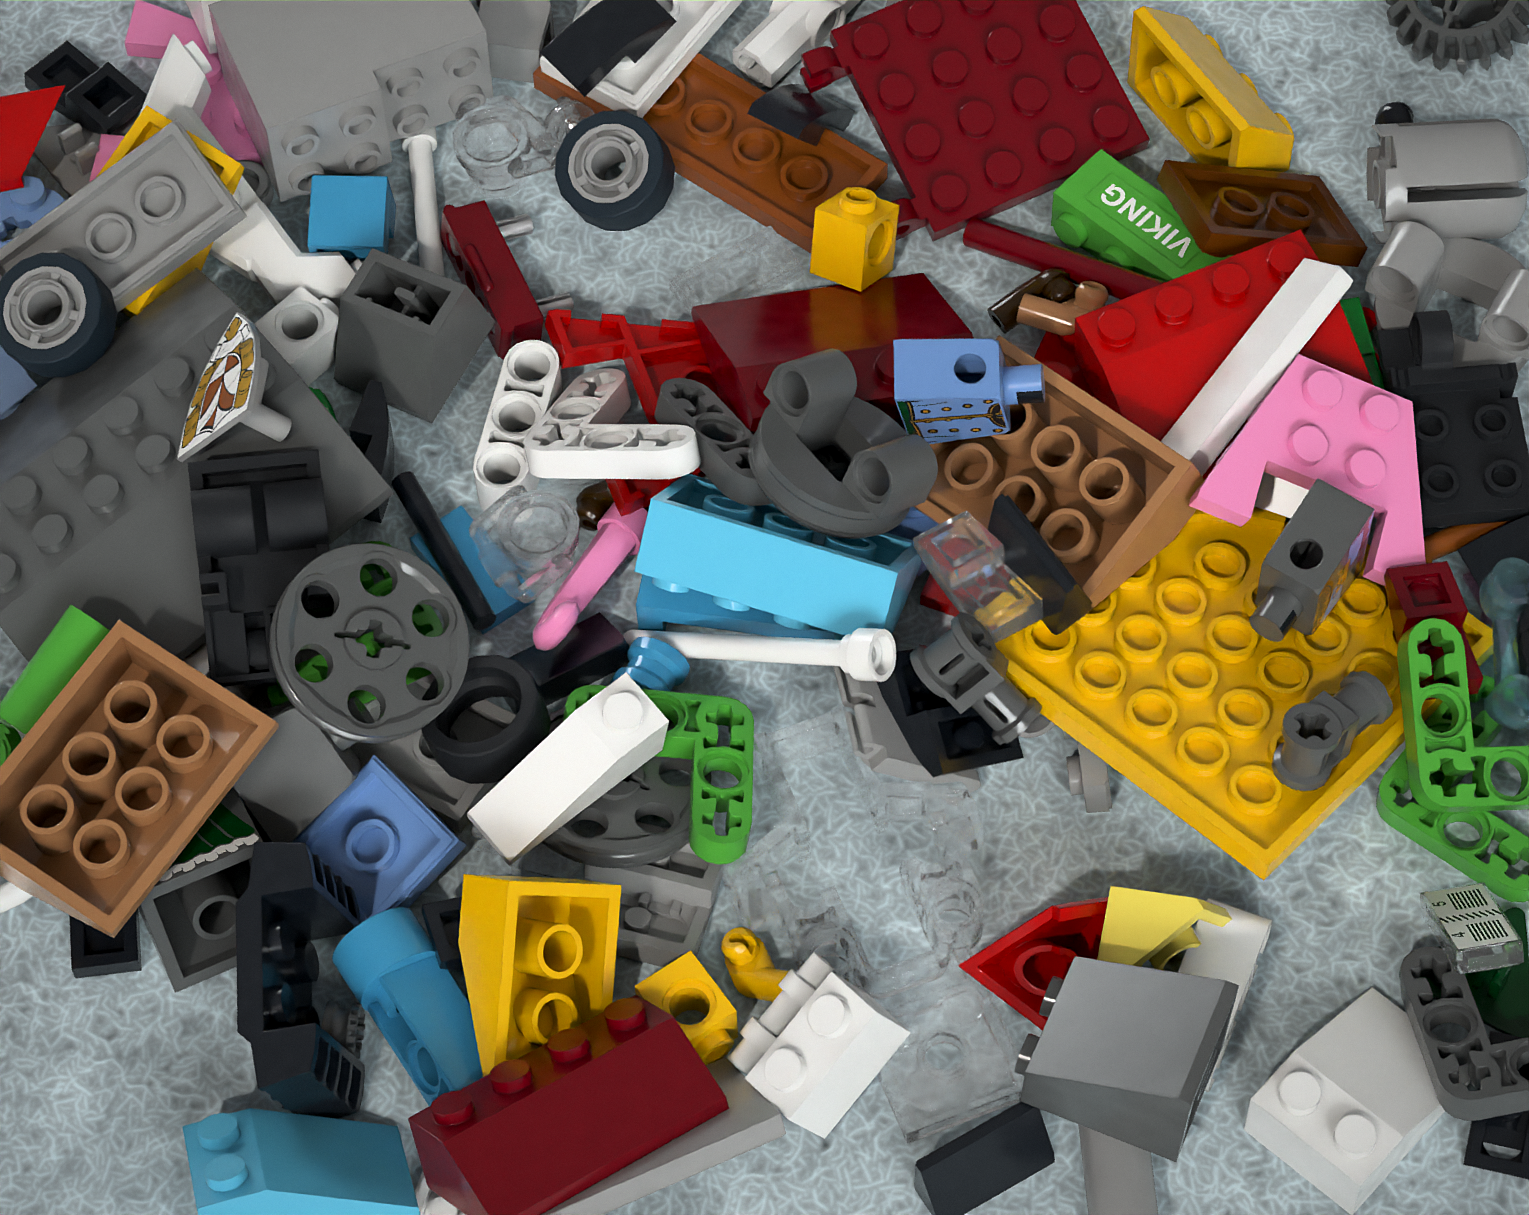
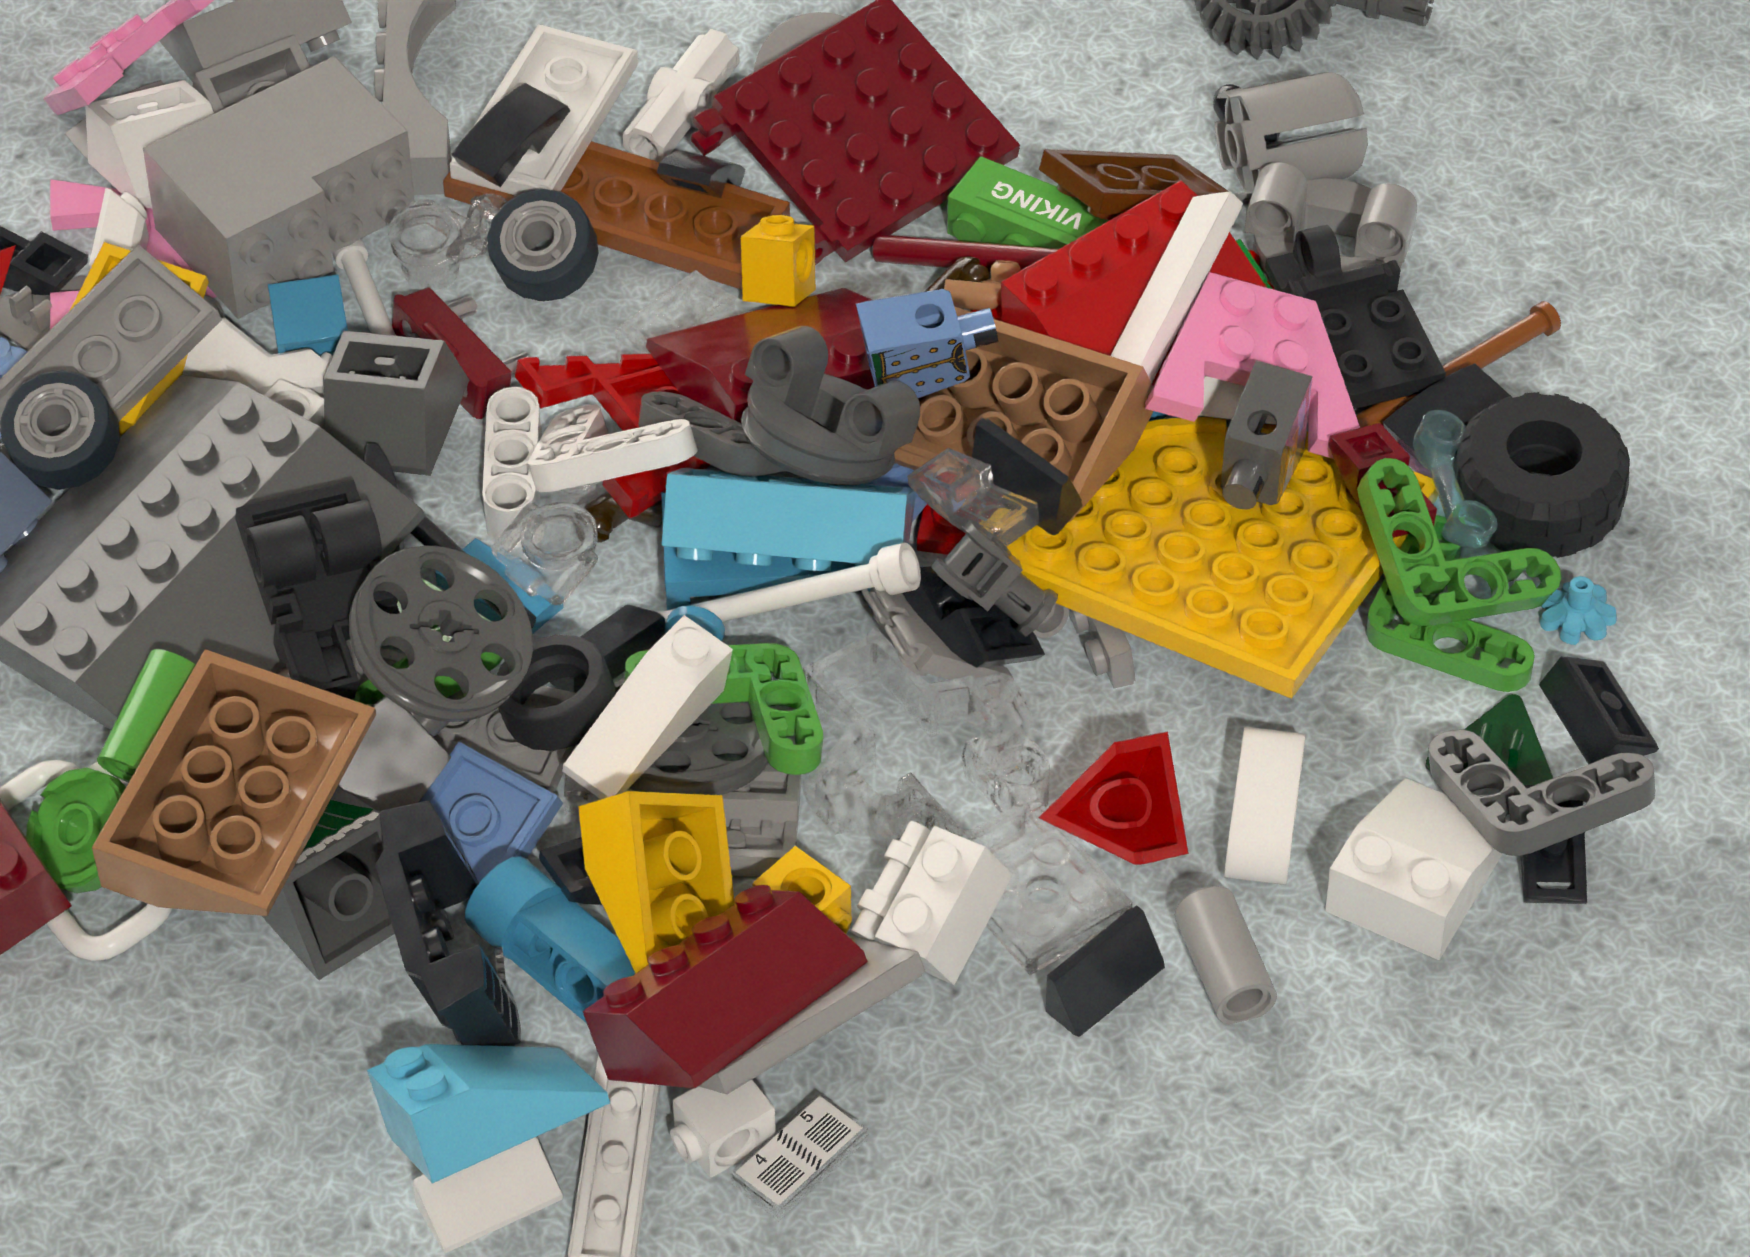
camera: 15 degrees left, 10 degrees down
(99, 954) = (241, 947): black tile -> none
(231, 392) = (262, 439): shield -> none
(613, 544) = (627, 541): bright pink plant -> none
(751, 965) = (848, 858): yellow arm -> none
(1127, 1050) = (1214, 841): slope -> none
(1152, 926) = (1203, 749): light yellow slope -> none
(1203, 96) = (1053, 103): yellow slope -> none
(1323, 730) = (1314, 565): dark grey connector -> none
(1471, 928) = (1481, 708): tile -> none

